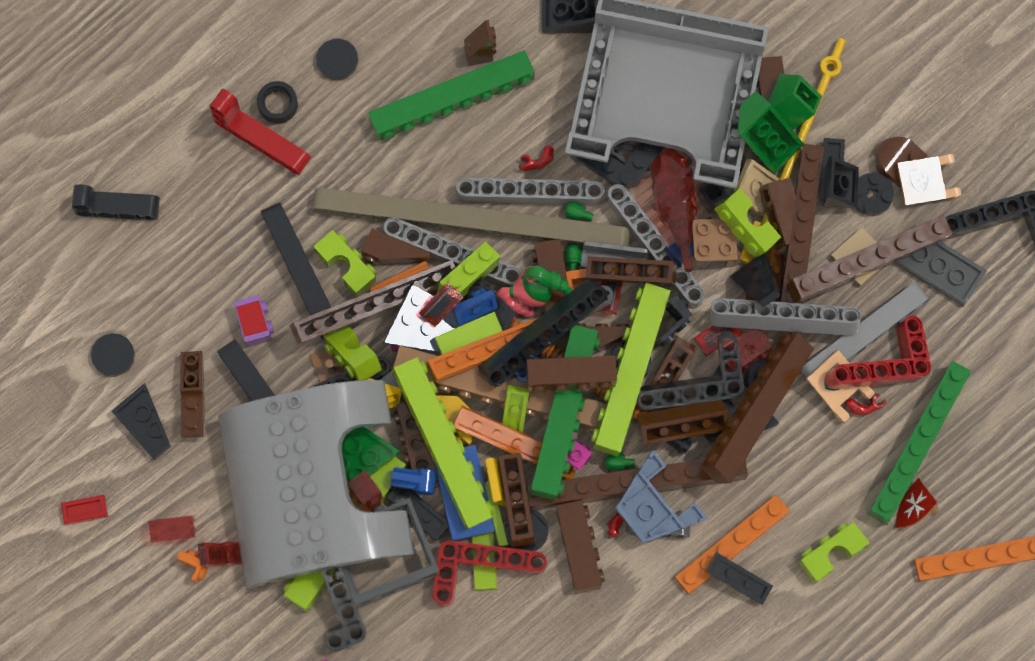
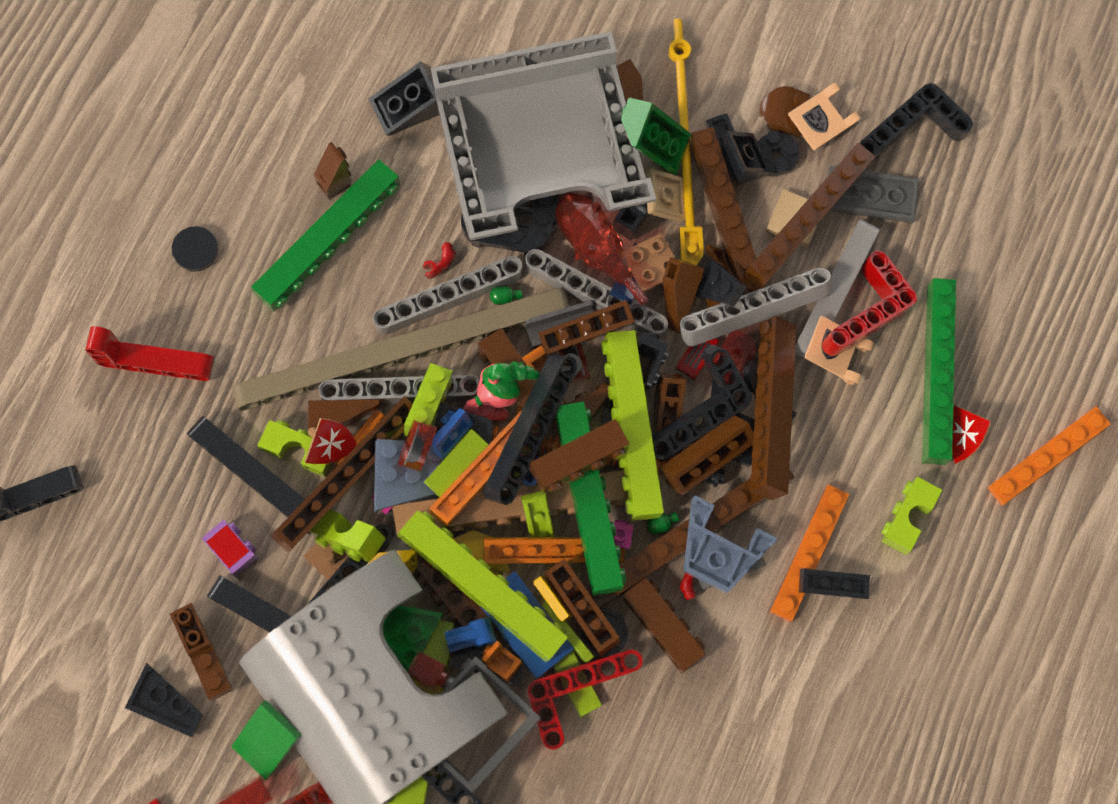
camera: 30 degrees left, 0 degrees up
(113, 355) = (100, 648): black tile -> none
(211, 487) = (266, 740): none -> green tile
(274, 87) = (143, 303): black tyre -> none
(372, 270) = (329, 442): none -> red shield
(429, 512) = (501, 661): none -> orange bracket
(573, 257) = (521, 340): green cylinder -> none
(728, 270) = (680, 287): none -> reddish brown slope
(734, 213) = (660, 226): lime arch -> none
(779, 204) = (699, 204): reddish brown slope -> none
(794, 99) = (664, 91): green slope -> none
(859, 409) = (863, 365): red piece -> none

